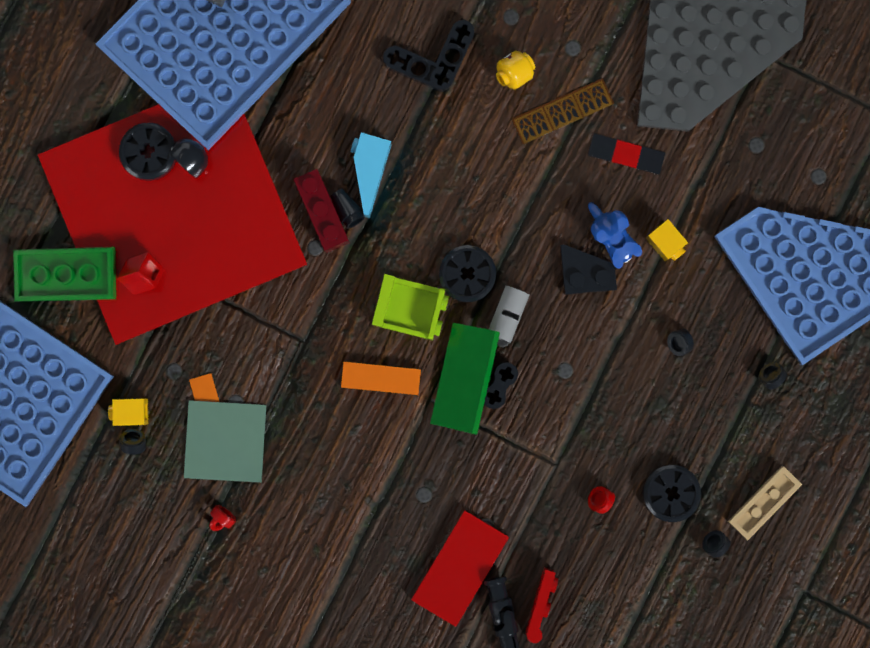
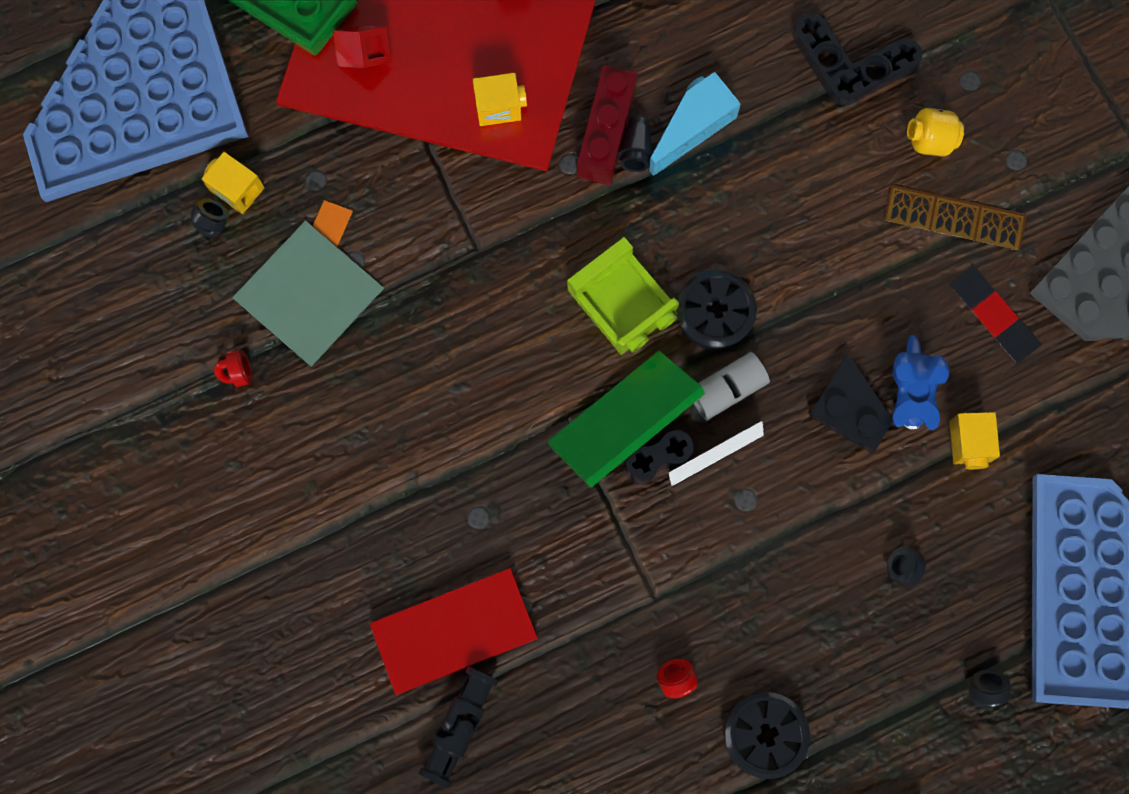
camera: 40 degrees right, 10 degrees down
(248, 245) = (499, 99): none -> yellow brick
(380, 378) = (531, 352): orange tile -> none
(530, 358) = (716, 453): none -> white sticker
(540, 606) = (511, 749): red plate -> none

